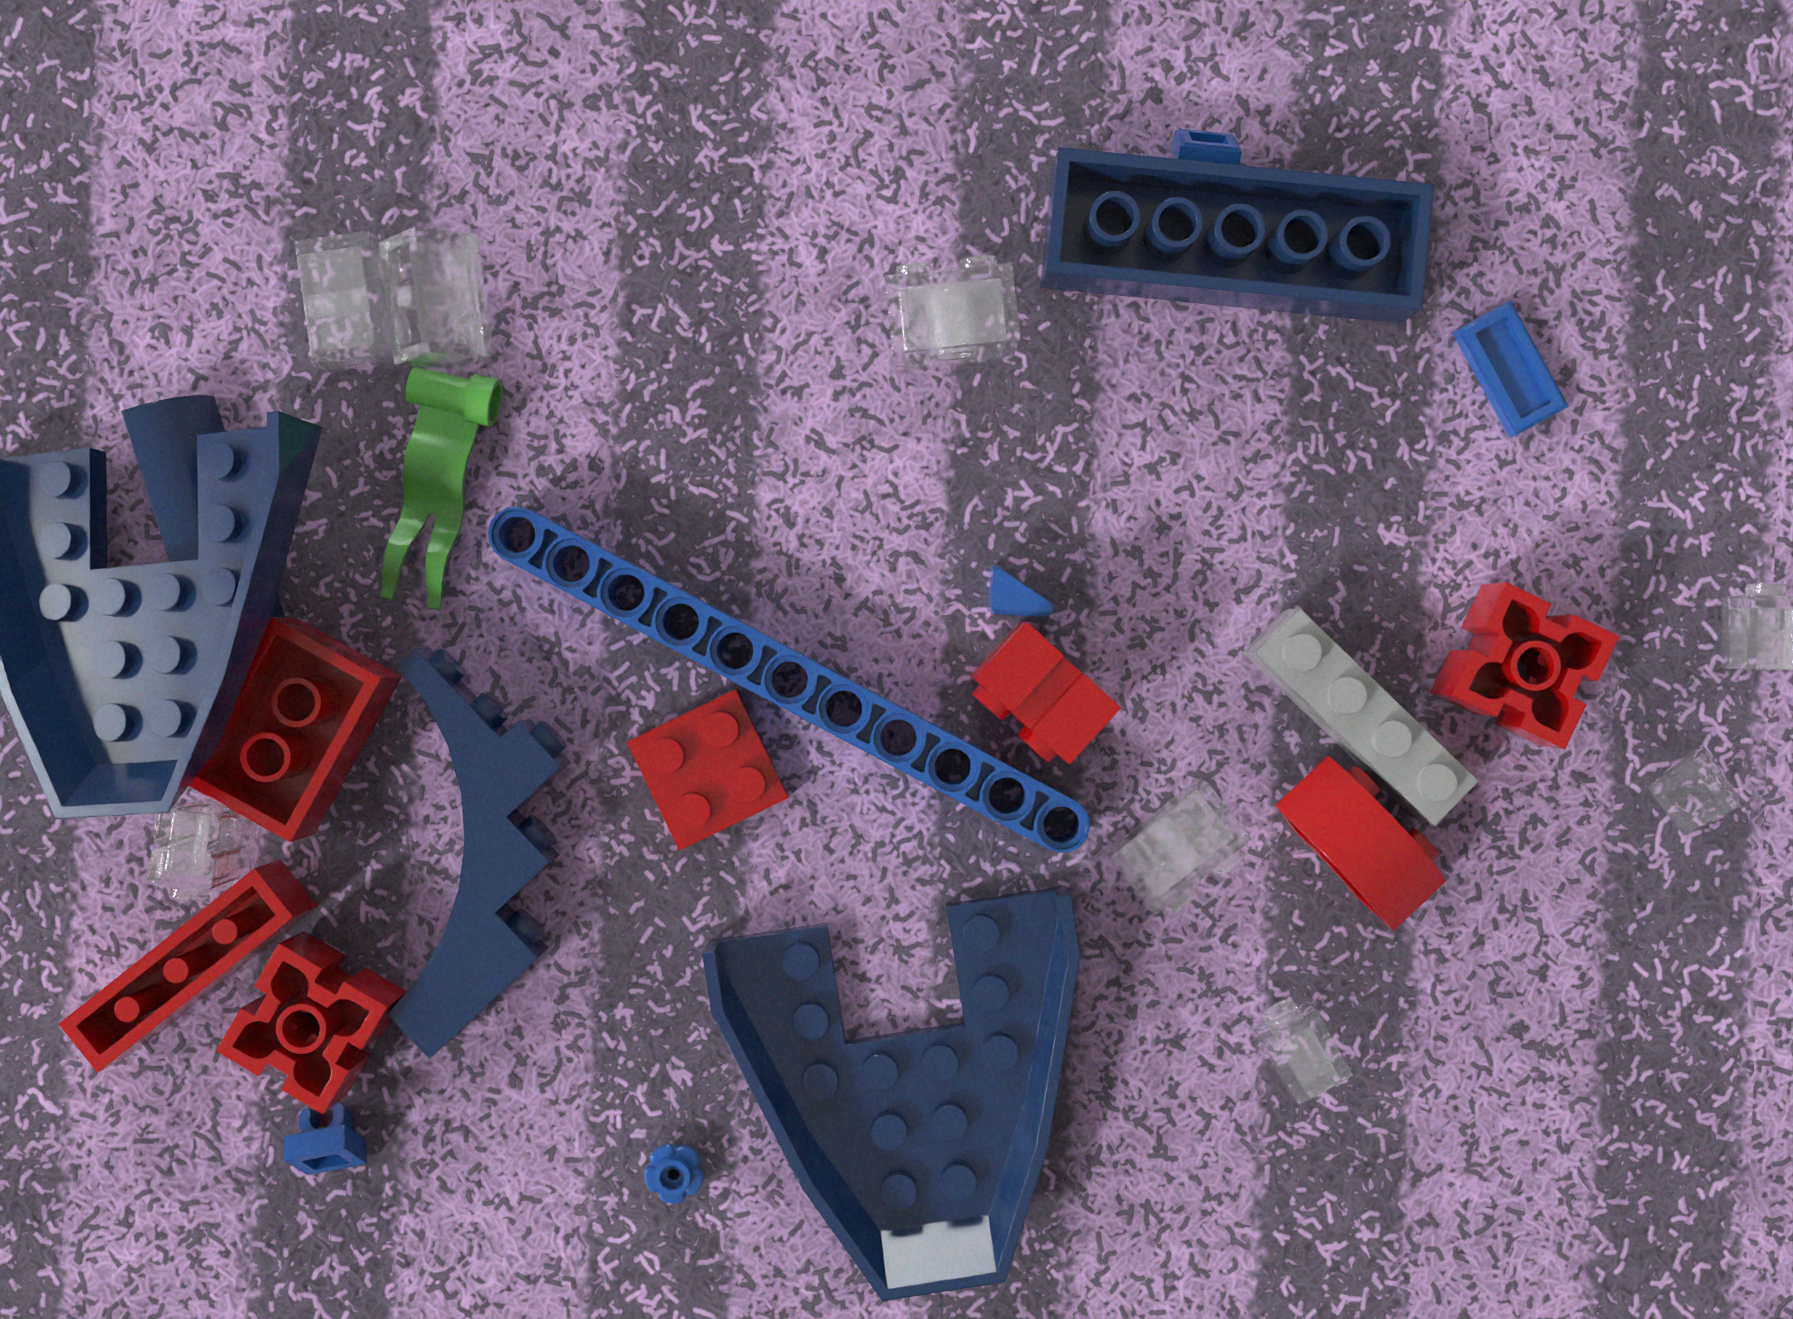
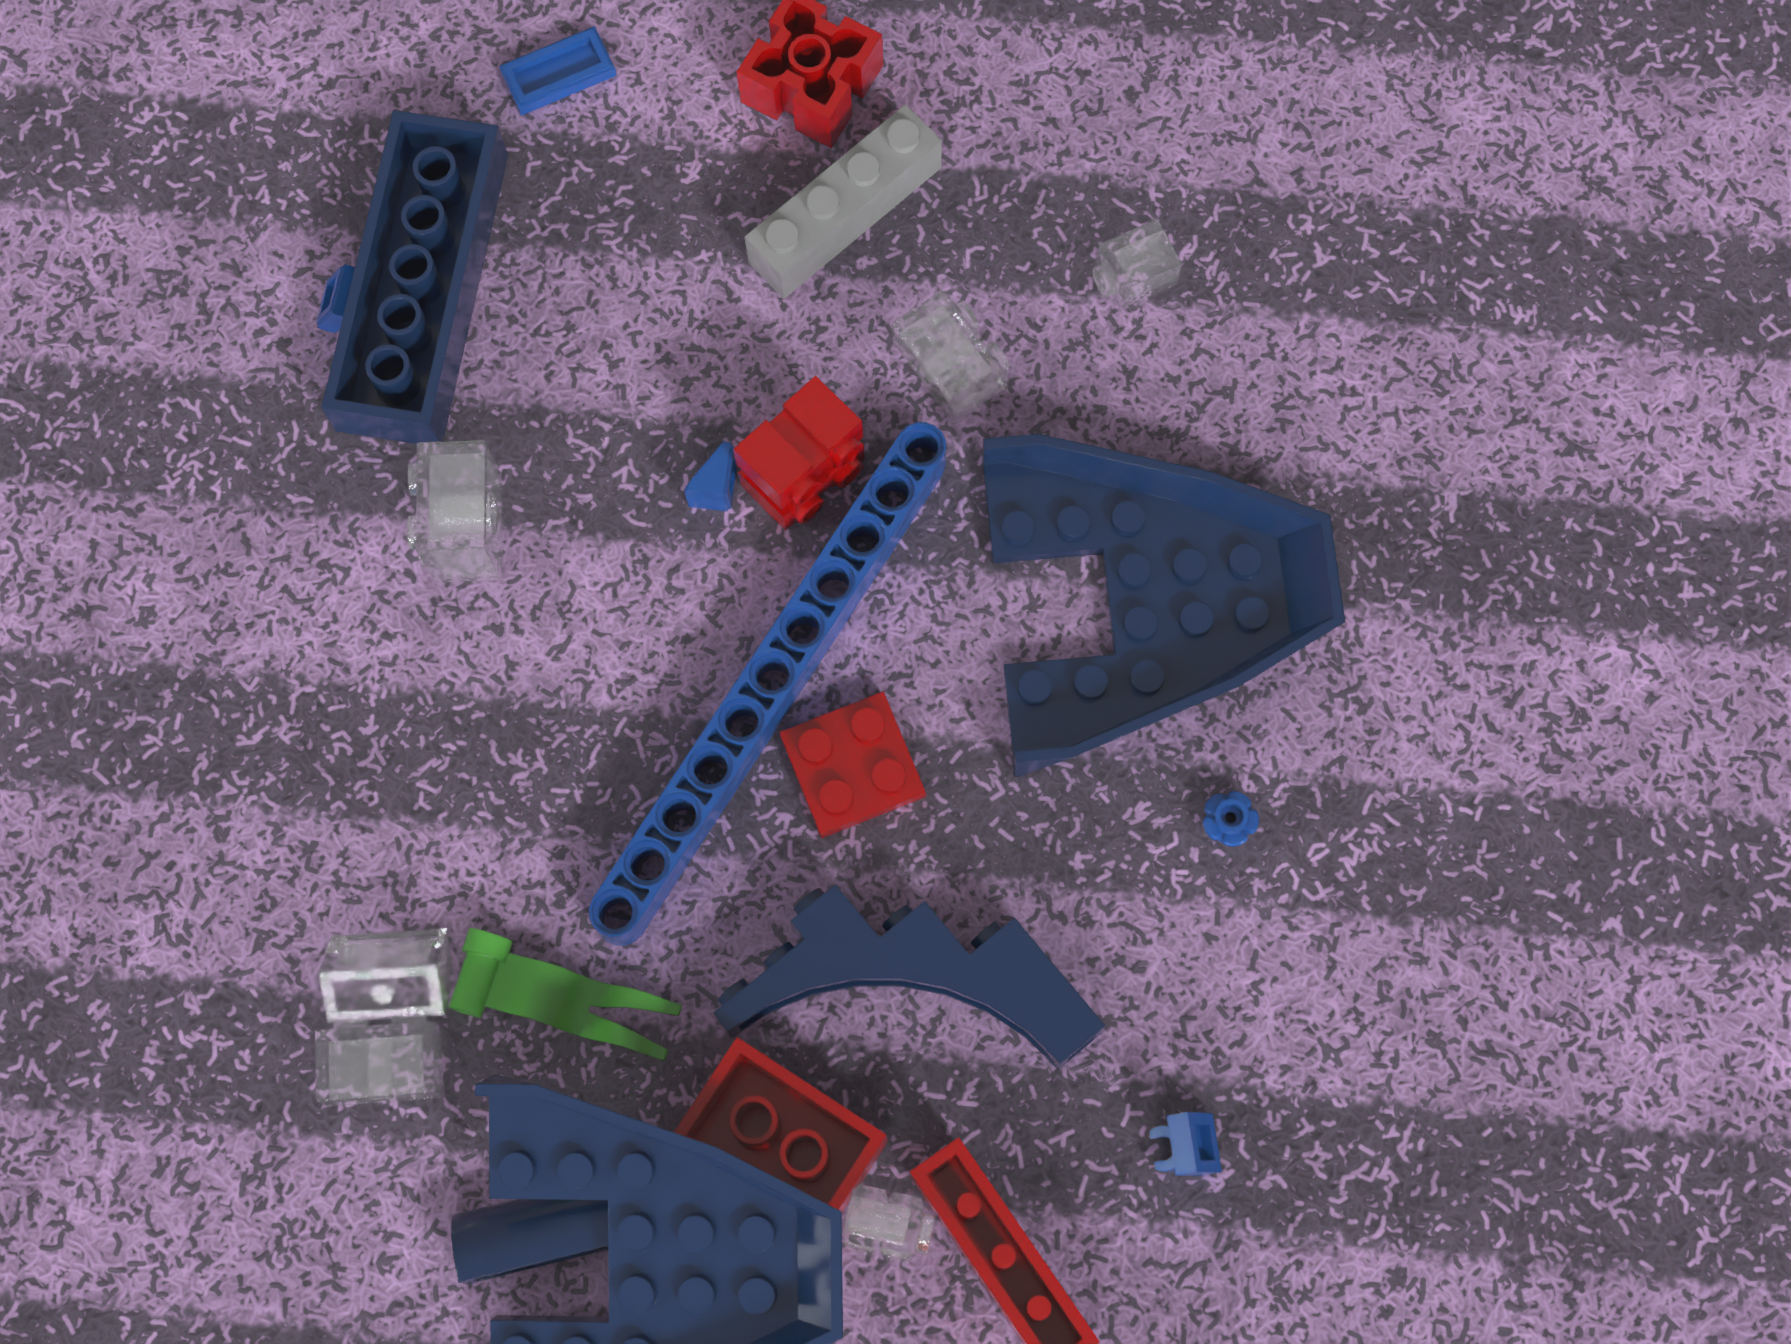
camera: 80 degrees left, 15 degrees down
(278, 1030) = (1101, 1135): red brick -> none
(1362, 841) = (954, 204): red brick -> none

